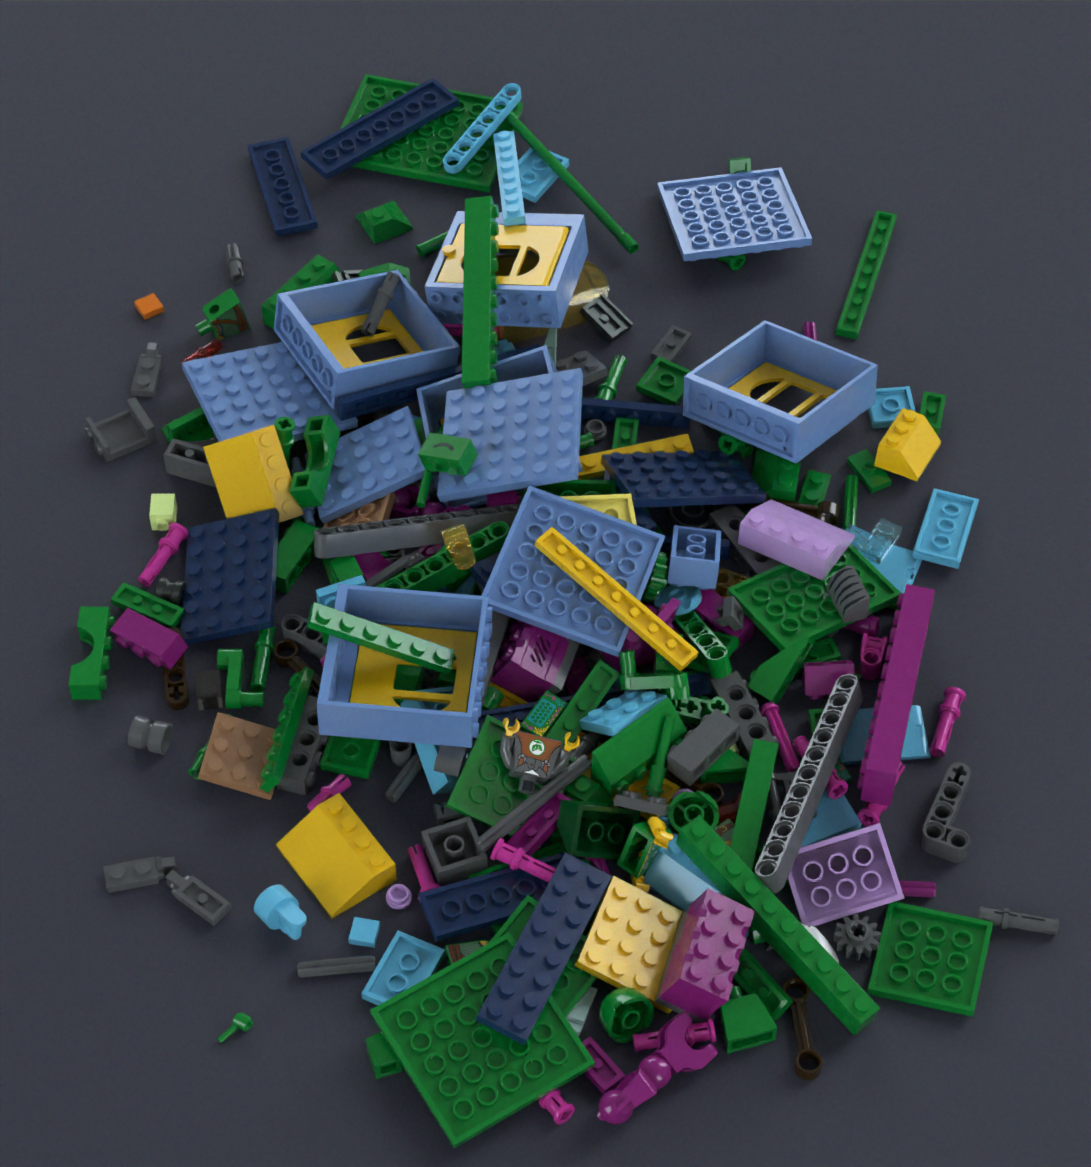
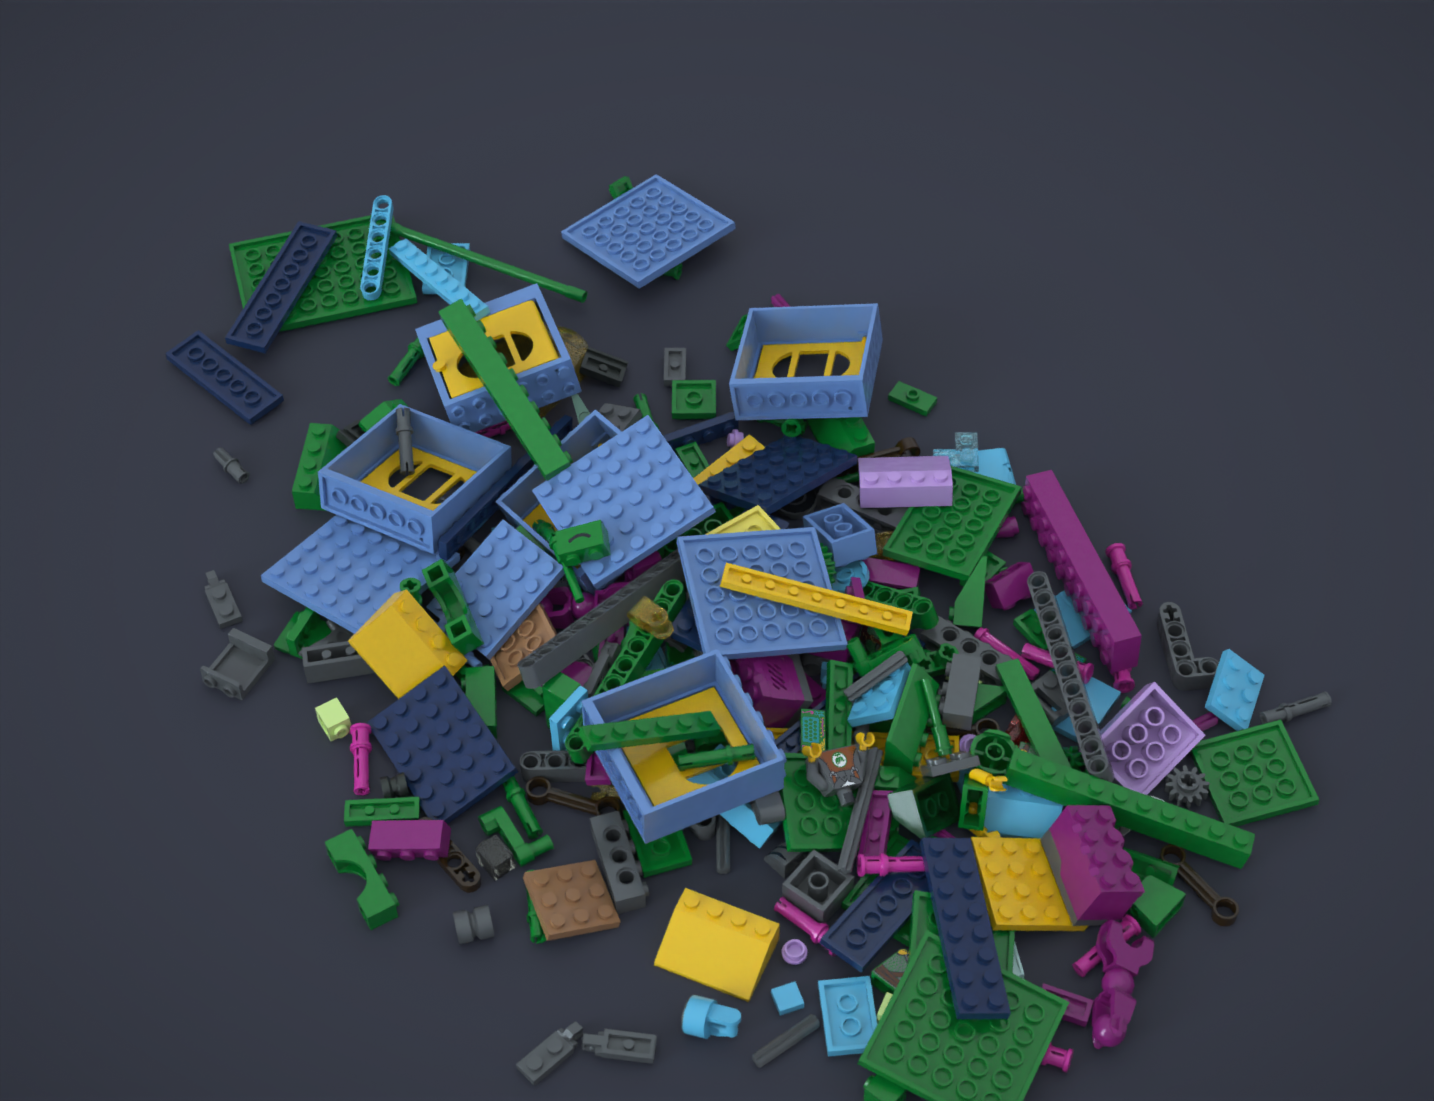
camera: 30 degrees left, 0 degrees up
(149, 306) = (177, 540): orange tile -> none
(206, 351) = (261, 562): clear red axle -> none
(223, 316) = (261, 517): green torso -> none
(285, 733) = (597, 857): green plate -> none
(329, 791) = (669, 895): dark pink axle -> none
(384, 222) = (340, 369): green slope -> none
(439, 694) = (716, 757): none -> green pin
(625, 1013) = (1055, 948): green cylinder -> none
(627, 693) = (875, 676): none -> dark grey axle
(675, 431) = (734, 438): none -> lavender plate
(731, 614) = (902, 568): dark grey tile -> none
(815, 488) = (881, 433): green plate -> none
(849, 595) = (987, 506): dark grey brick -> none
(850, 501) = (917, 431): green axle -> none
(866, 275) = (790, 236): green tile -> none
(871, 656) = (1028, 548): dark pink piece -> none
(888, 405) = (896, 338): medium azure tile -> none
(907, 445) = (931, 362): yellow slope -> none
(932, 408) = (927, 327): green plate -> none
(945, 528) = (1008, 417): medium azure tile -> none
(968, 874) = (1234, 690): none -> medium azure plate

